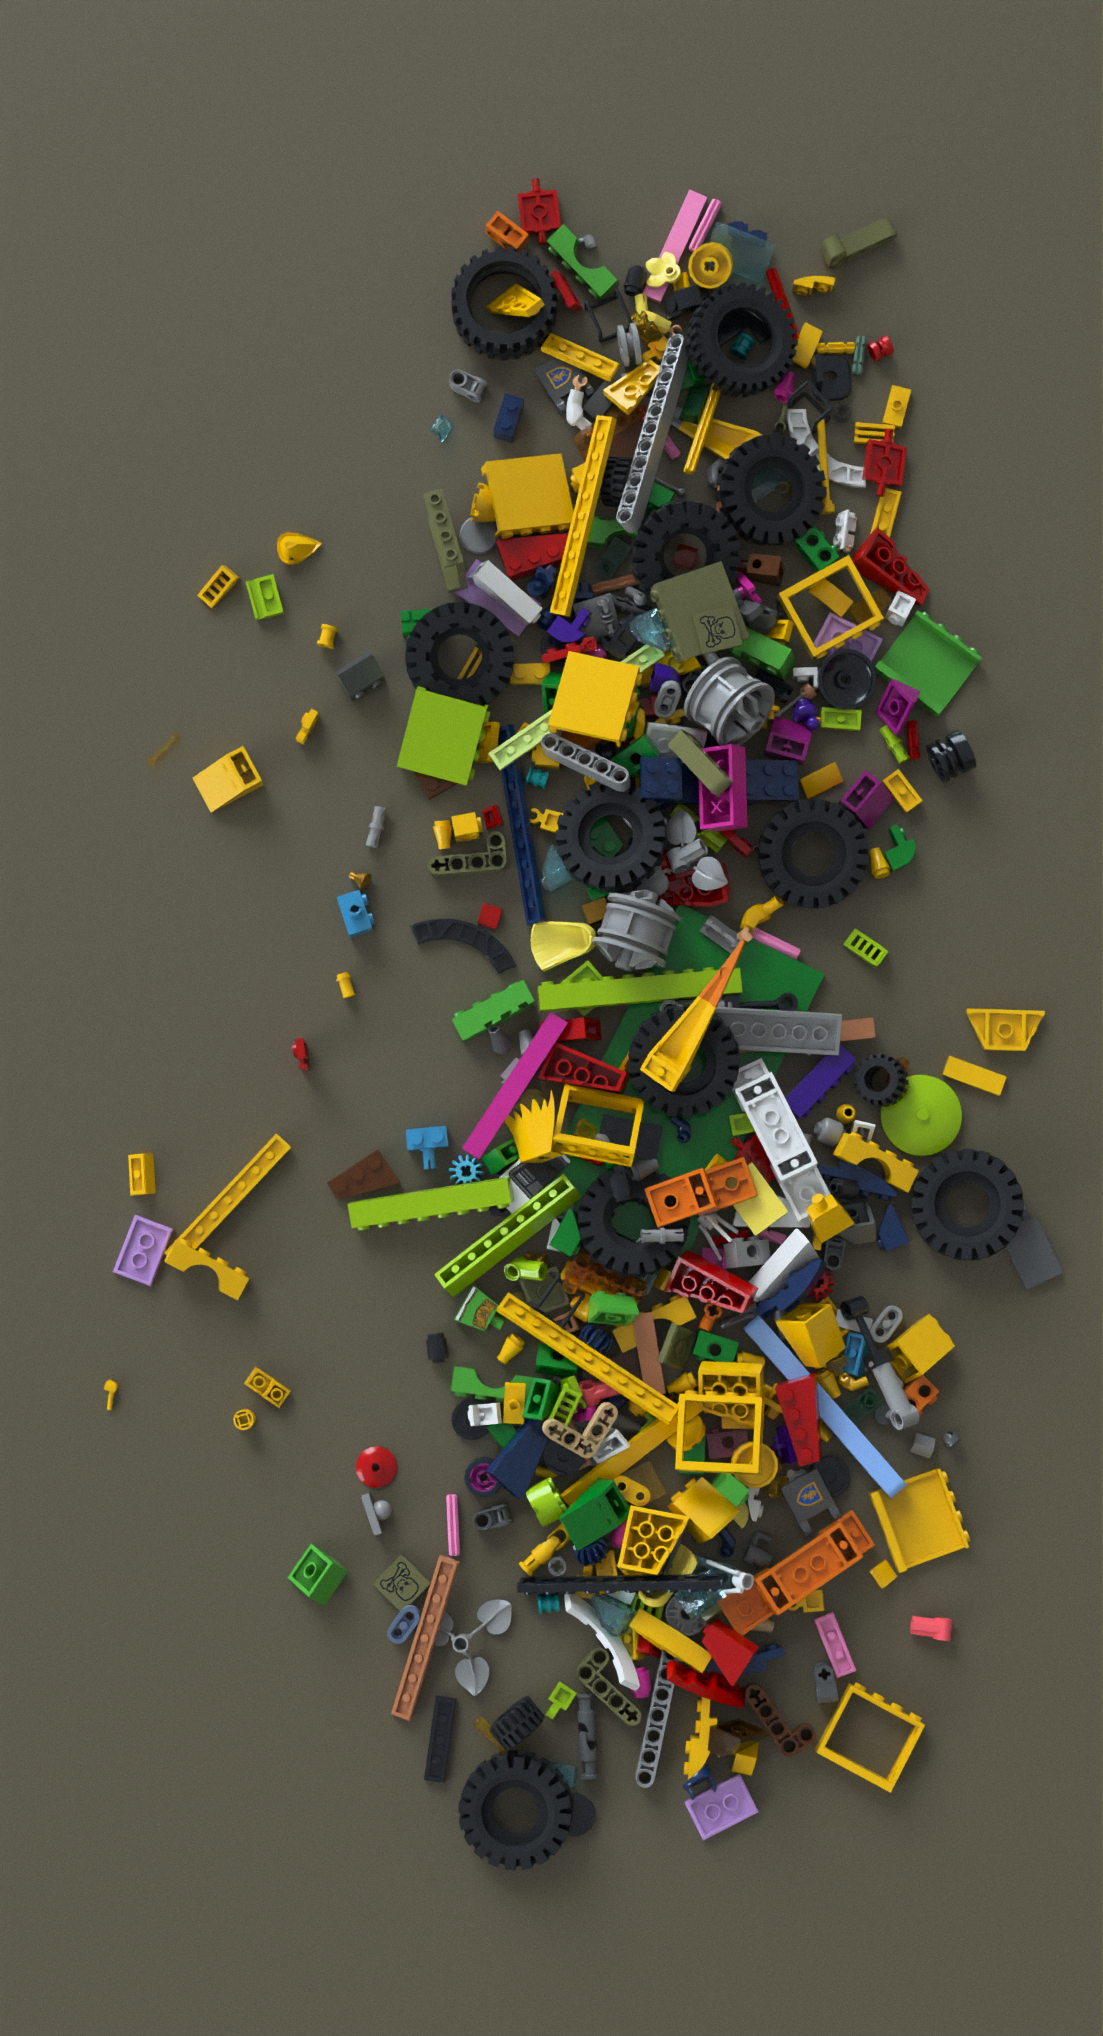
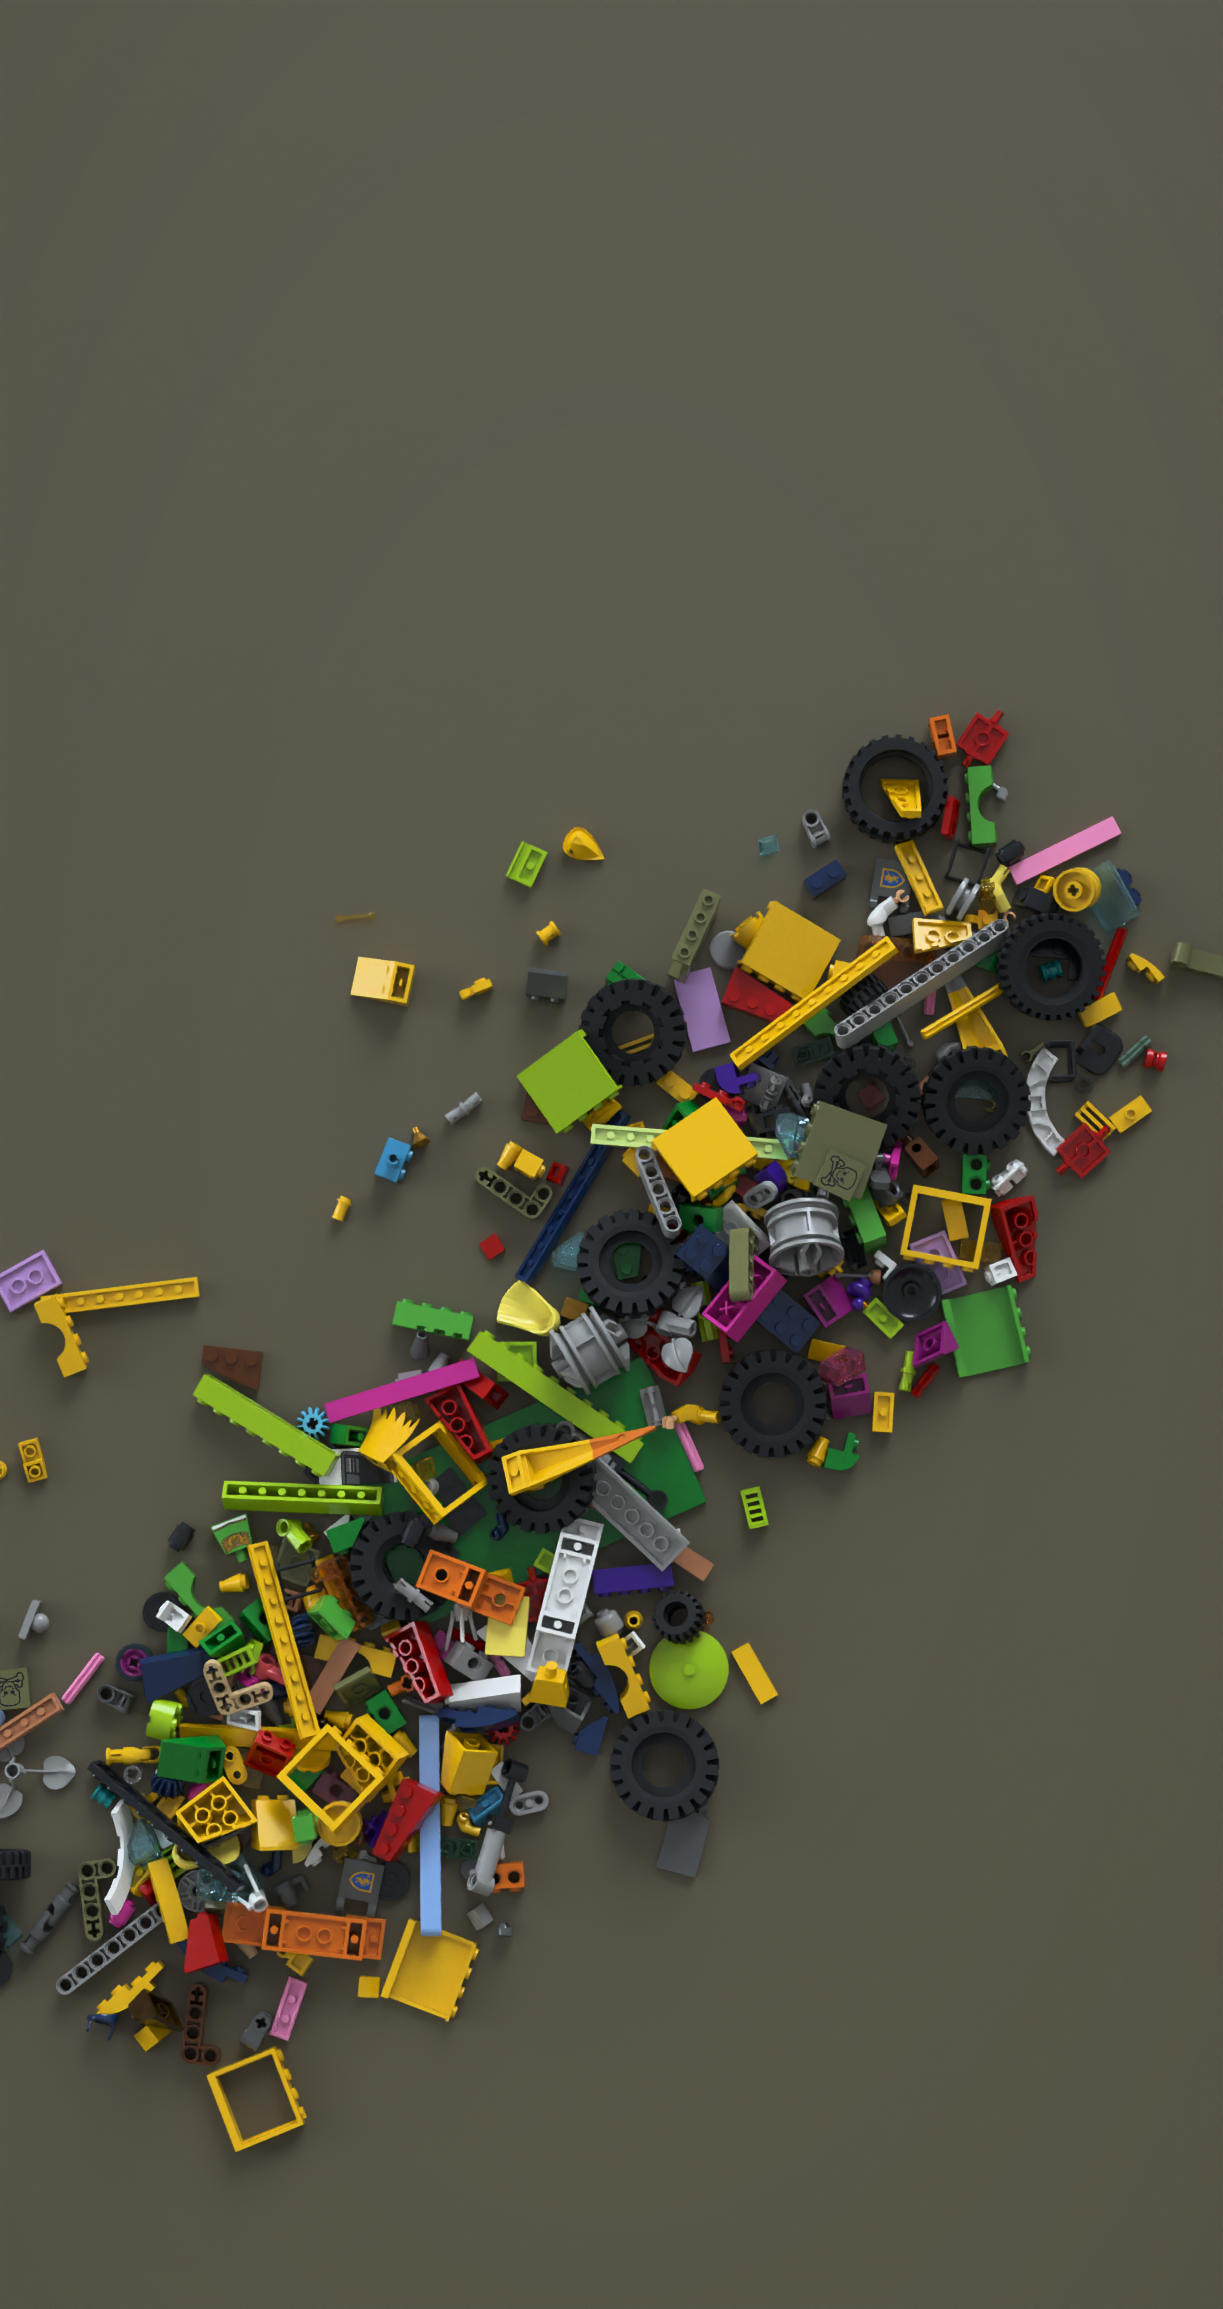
camera: 45 degrees right, 0 degrees up
(141, 1174) = (73, 1223): yellow slope -> none
(212, 582) = (508, 832): yellow slope -> none
(300, 1051) = (265, 1231): red plate -> none
(379, 1456) = (73, 1585): red dish -> none
(427, 1141) = (302, 1377): dark azure brick -> none
(466, 933) = (464, 1245): black tile -> none
(505, 592) = (708, 1012): white slope -> none
(537, 777) = (616, 1171): teal bush -> none
(542, 582) = (743, 1026): dark blue hips -> none
(546, 618) = (723, 1057): dark blue cone -> none
(548, 819) = (596, 1210): yellow plate -> none
(561, 1697) = (54, 1873): lime plate -> none
(614, 584) = (799, 1073): nougat axle -> none
(652, 1457) = (269, 1753): none -> red plate
(660, 270) = (1038, 859): light yellow plate -> none
(694, 404) = (975, 985): clear green slope -> none
(705, 225) = (1101, 853): bright pink axle -> none
(710, 1686) = (166, 1955): red slope -> none
(721, 1809) = (104, 2057): lavender tile -> none
(785, 387) = (1056, 1029): dark pink cone -> none
(829, 508) = (1012, 1145): yellow piece -> none
(835, 348) = (1121, 1030): yellow axle -> none
(843, 779) = (842, 1366): none -> clear pink brick
(886, 511) = (1053, 1189): yellow tile -> none
(919, 1348) = (537, 1842): yellow slope -> none
(936, 1627) = (374, 2061): coral piece -> none
(954, 754) = (941, 1417): black wheel -> none
(1004, 1028) = (808, 1657): yellow wing -> none

